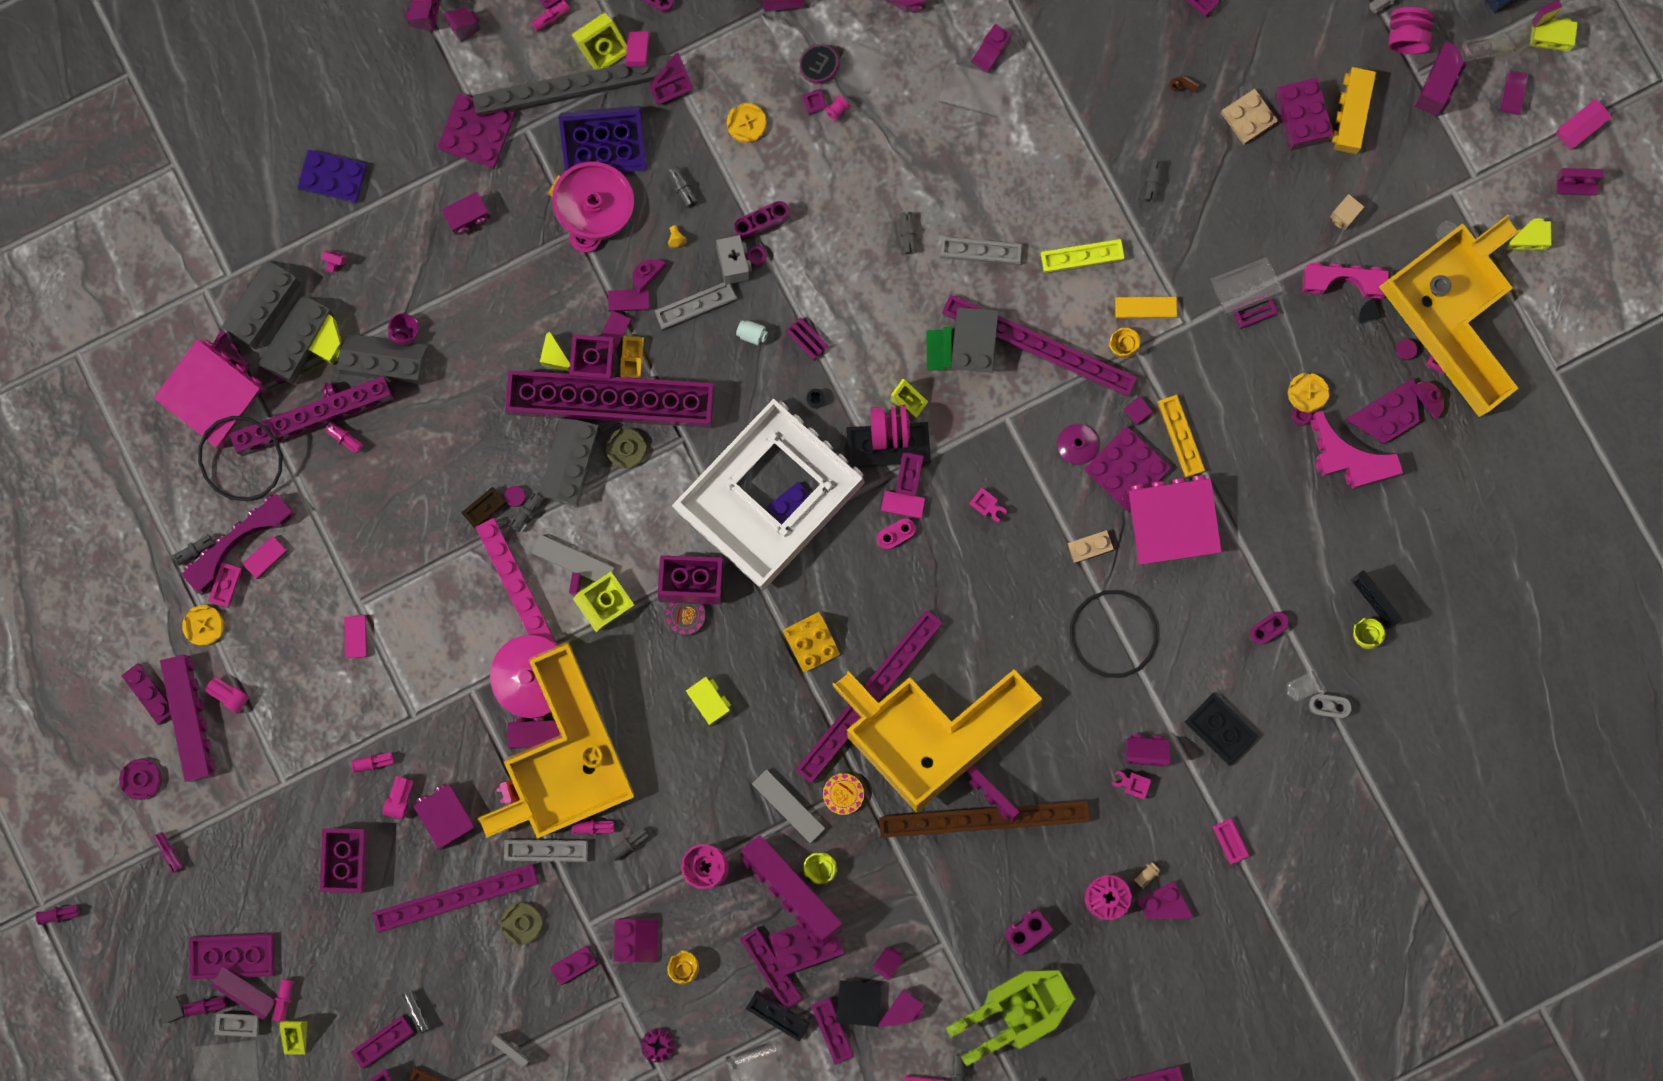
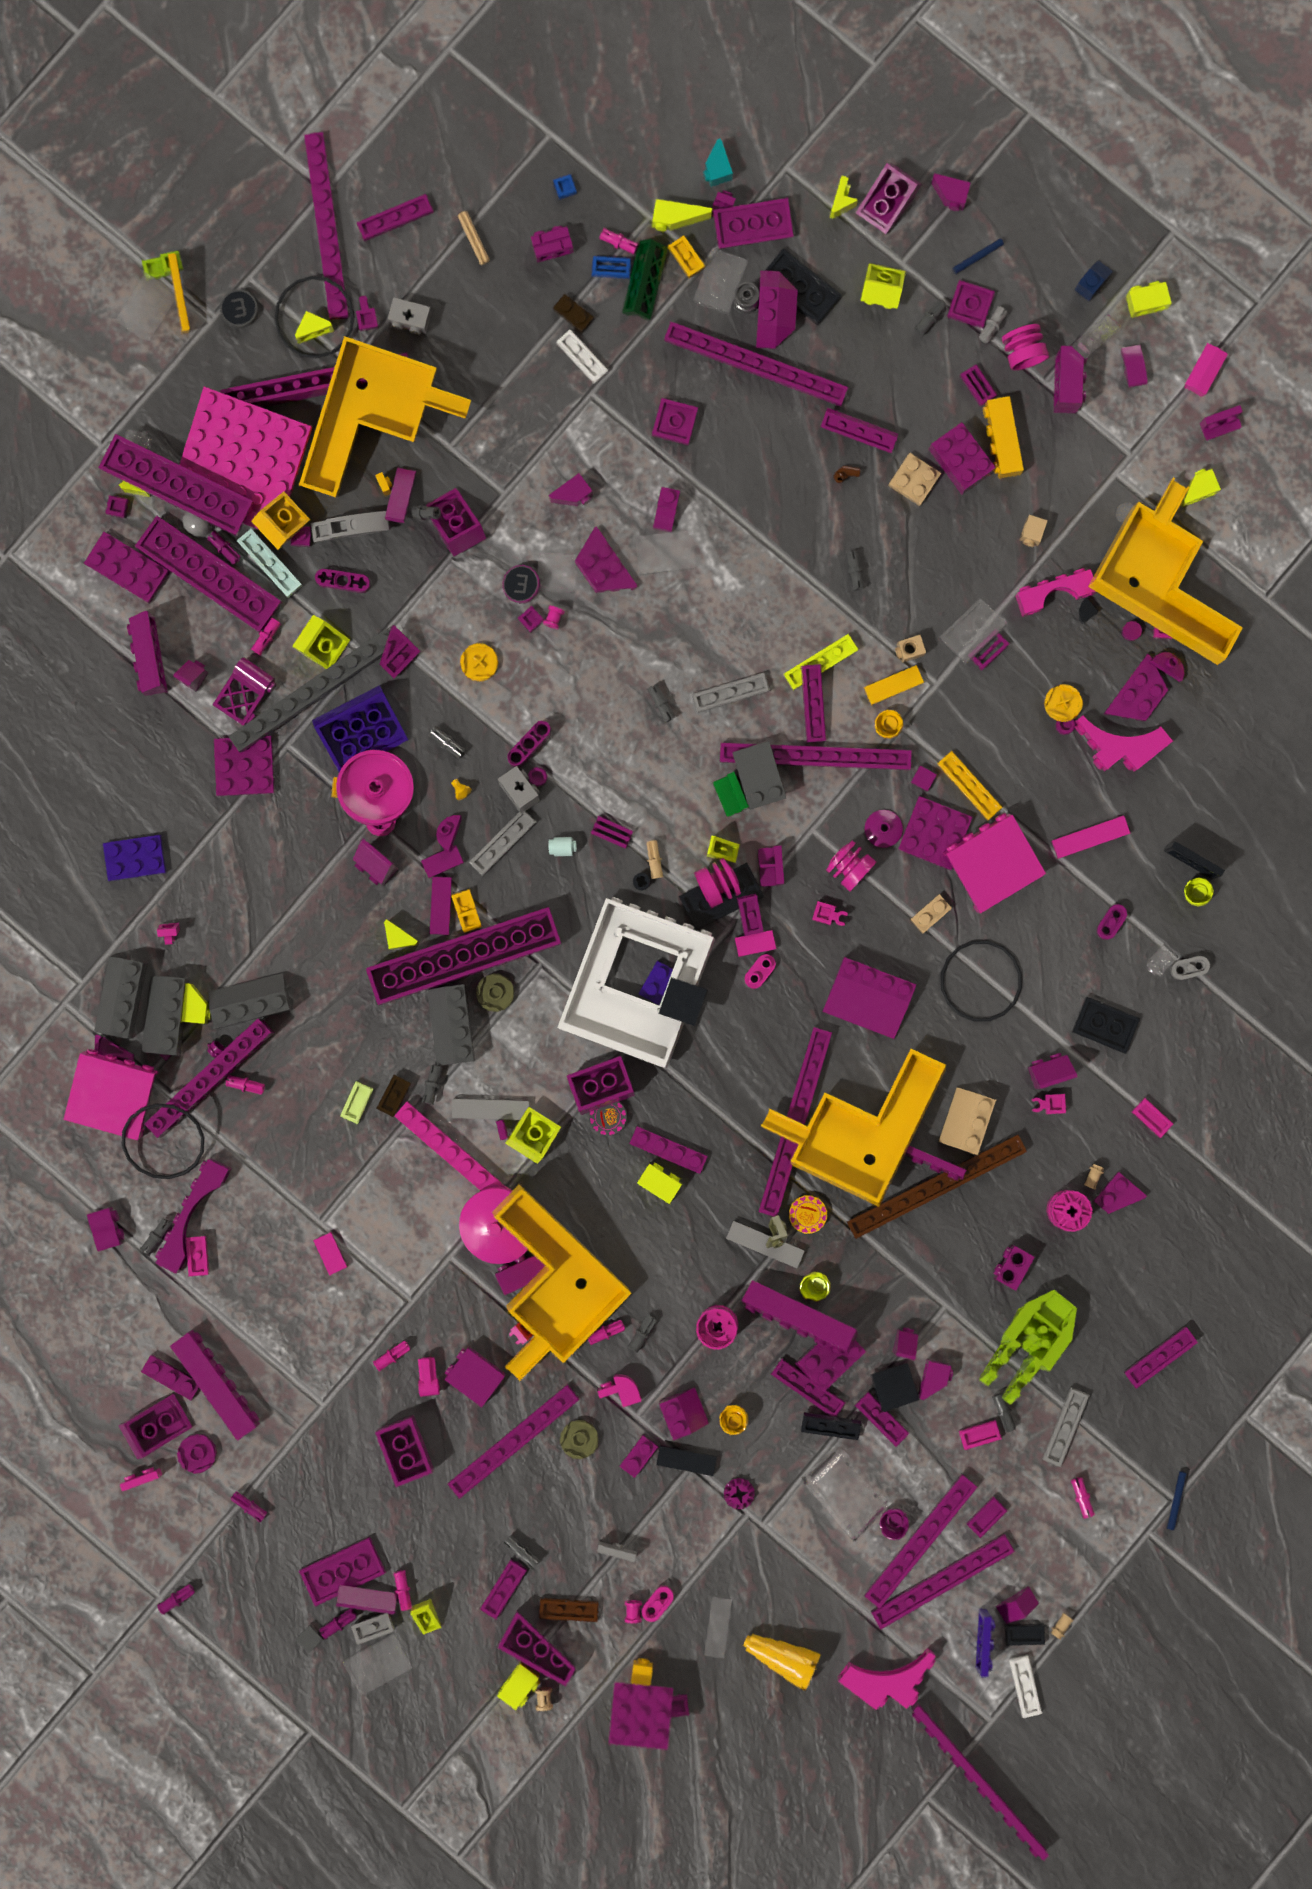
camera: 30 degrees left, 5 degrees up
(66, 779) = (148, 1475): none -> dark pink plate
(111, 734) = (155, 1426): none -> magenta slope
(148, 521) = (105, 1228): none -> magenta brick
(203, 625) = (193, 1298): yellow tile -> none
(231, 697) = (246, 1351): dark pink piece -> none
(264, 557) = (221, 1217): dark pink tile -> none
(403, 329) = (256, 968): magenta hair -> none
(445, 500) = (356, 1102): none -> yellowish green tile
(466, 214) = (267, 843): magenta brick -> none
(515, 496) = (416, 1074): magenta tile -> none
(520, 50) = (253, 678): none -> magenta piece
(546, 850) = (573, 1368): light grey tile -> none
(561, 272) = (374, 863): none -> magenta slope
(589, 891) = (625, 1386): none -> dark pink brick
(590, 754) = (582, 1274): yellow wheel -> none
(592, 356) = (433, 926): magenta slope -> none
(619, 989) = (686, 1460): none -> black tile
(637, 49) = (356, 635): dark pink tile -> none
(731, 672) = (668, 1150): none -> magenta plate
(805, 528) = (683, 1001): none -> black tile
(806, 800) = (779, 1233): none -> olive bracket
(811, 642) = (725, 1095): yellow bracket -> none
(837, 382) = (654, 859): none -> tan axle
(906, 78) = (602, 566): none -> magenta wing
(950, 435) = (771, 866): none -> magenta panel
(993, 603) = (869, 997): none -> magenta slope
(1029, 466) = (850, 865): none -> dark pink wheel
(1041, 766) = (967, 1121): none -> tan slope
(1058, 292) = (813, 703): none -> magenta tile
(1183, 272) = (917, 644): none -> tan brick
(1213, 47) = (859, 430): none -> magenta plate
(1282, 536) = (1090, 837): none -> dark pink tile
(1339, 35) = (971, 388): none -> magenta tile
(1440, 286) = (1141, 565): flat silver tile -> none
(1546, 13) = (1138, 286): magenta tile -> none

